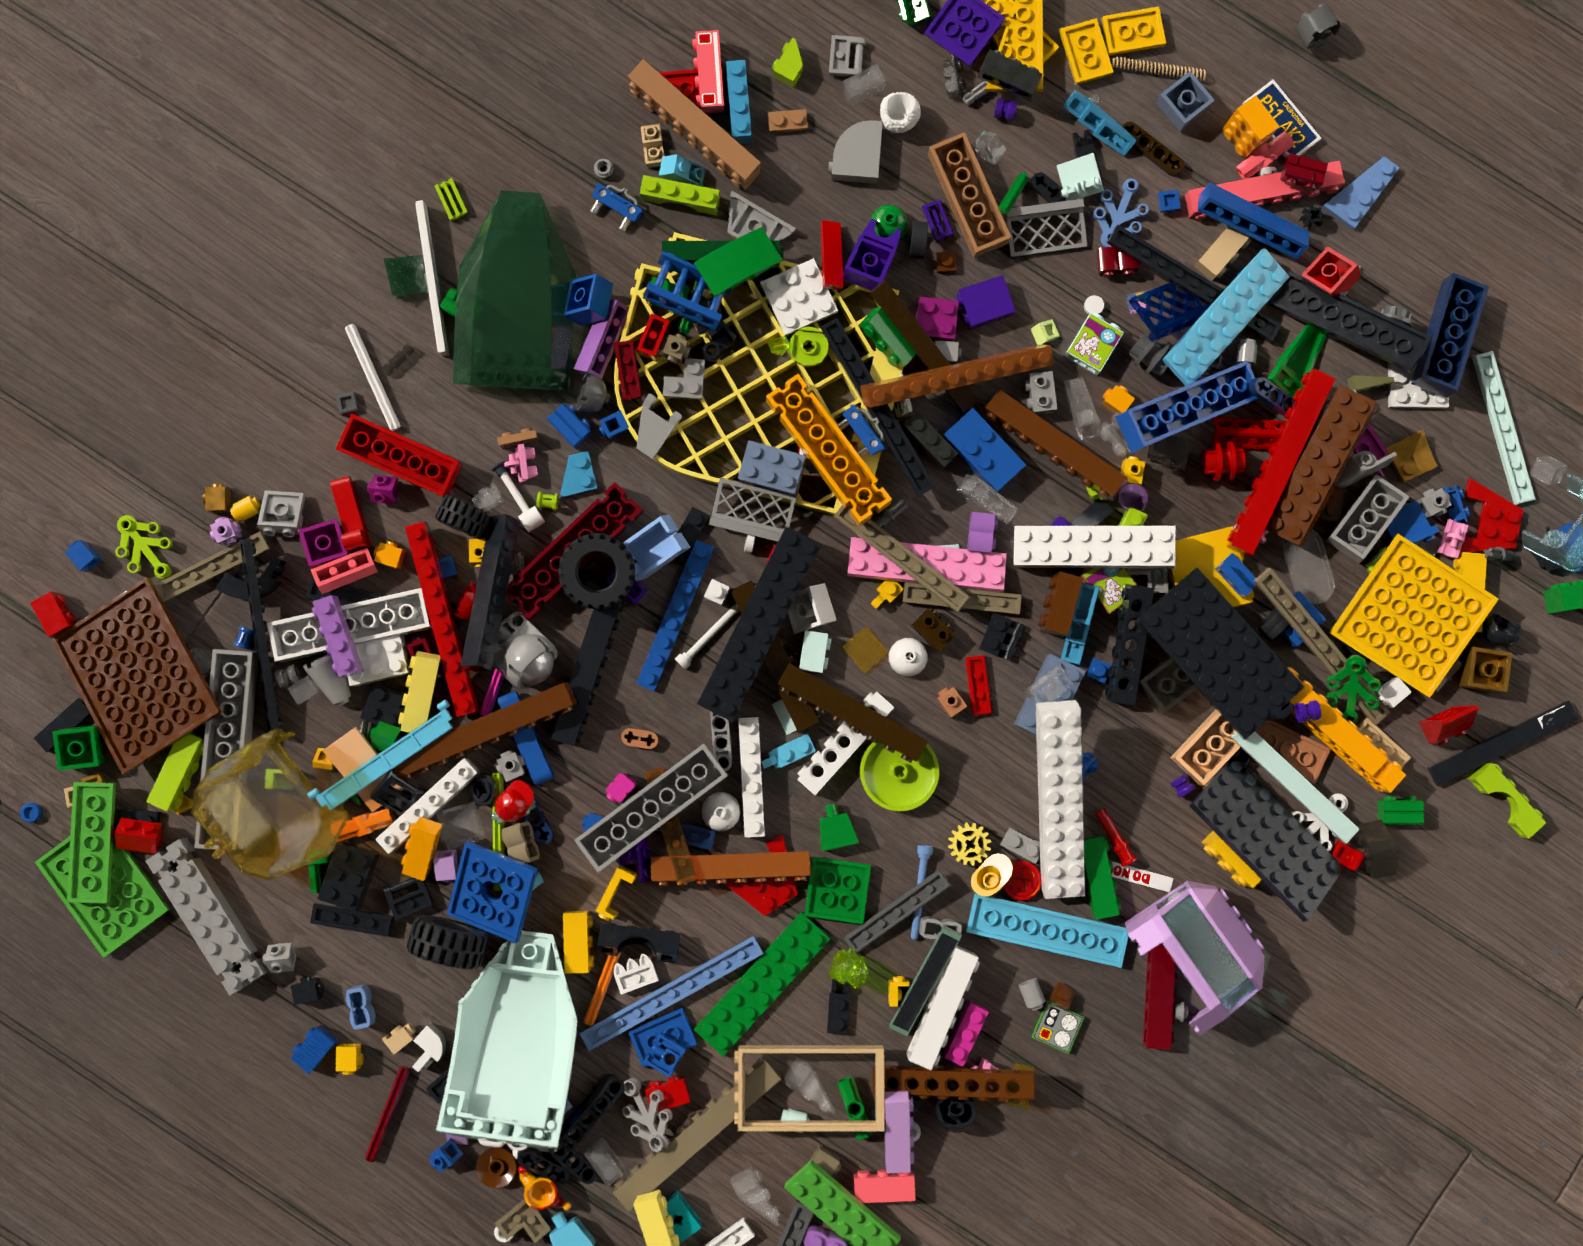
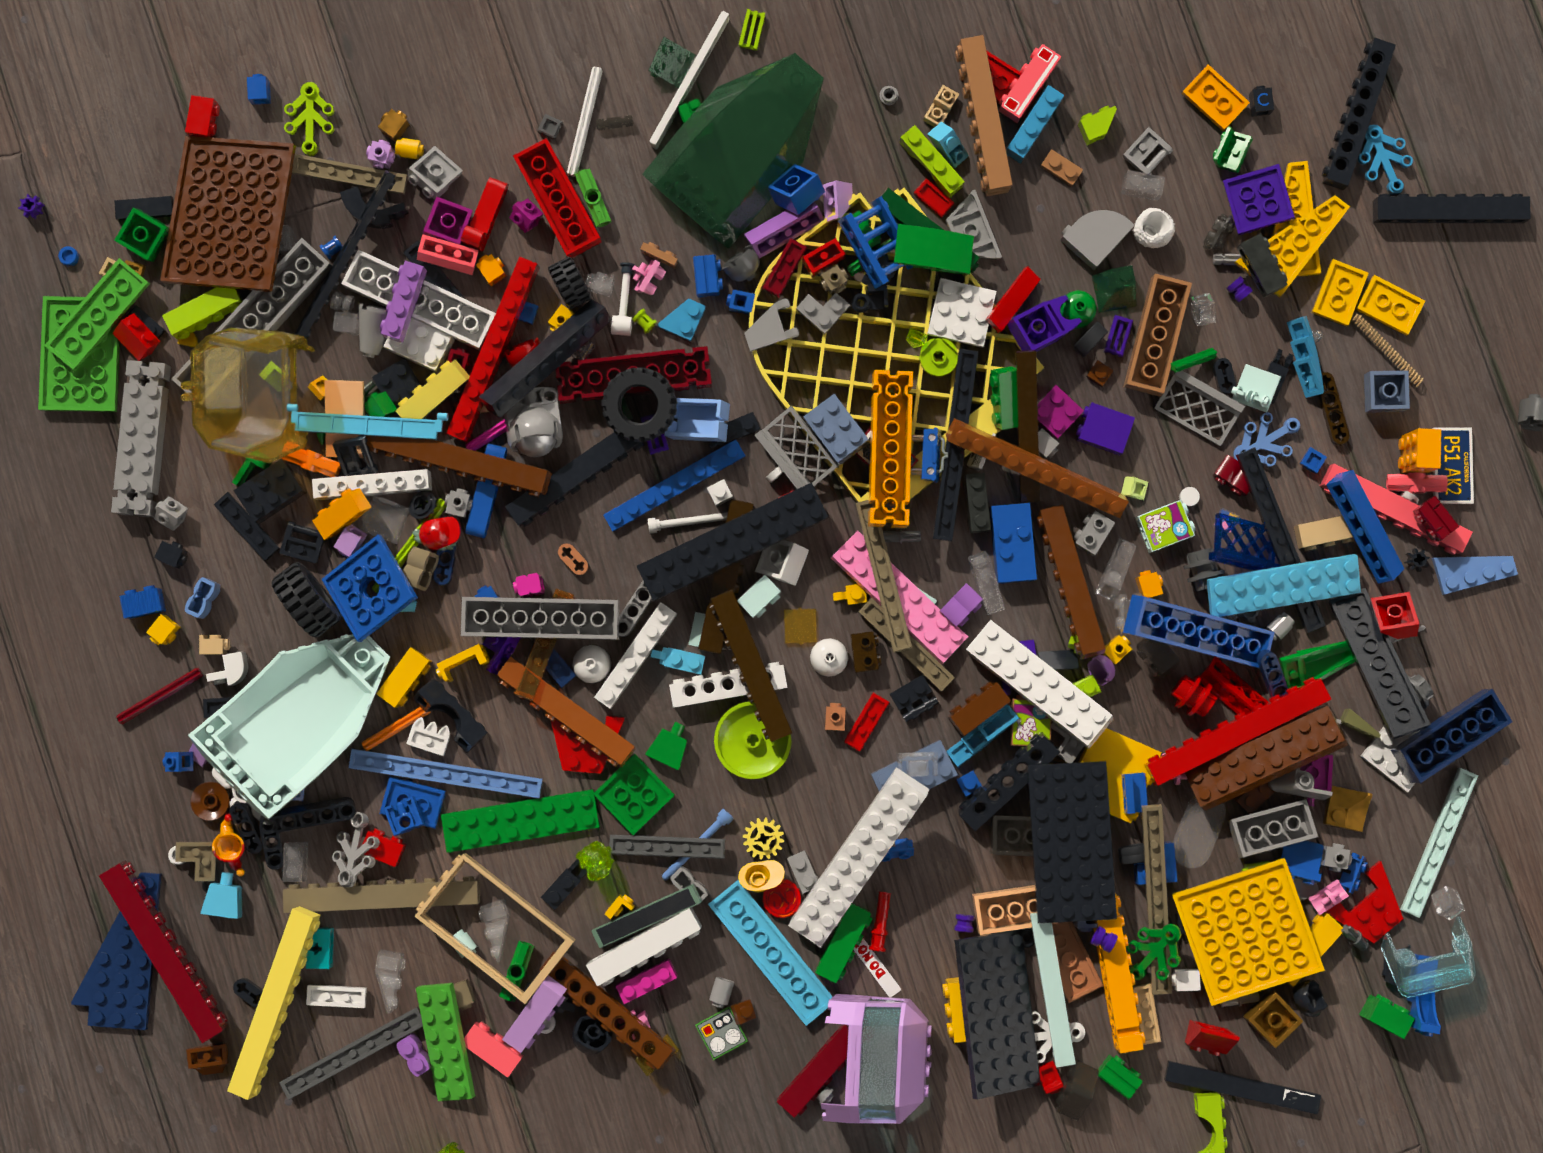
camera: 40 degrees right, 0 degrees up
(418, 427) = (589, 187): none -> bright green piece
(617, 203) = (878, 131): blue piece -> none
(626, 280) = (836, 196): none -> lavender slope
(704, 223) = (933, 198): none -> red tile
(906, 185) = (1115, 289): none -> clear green slope

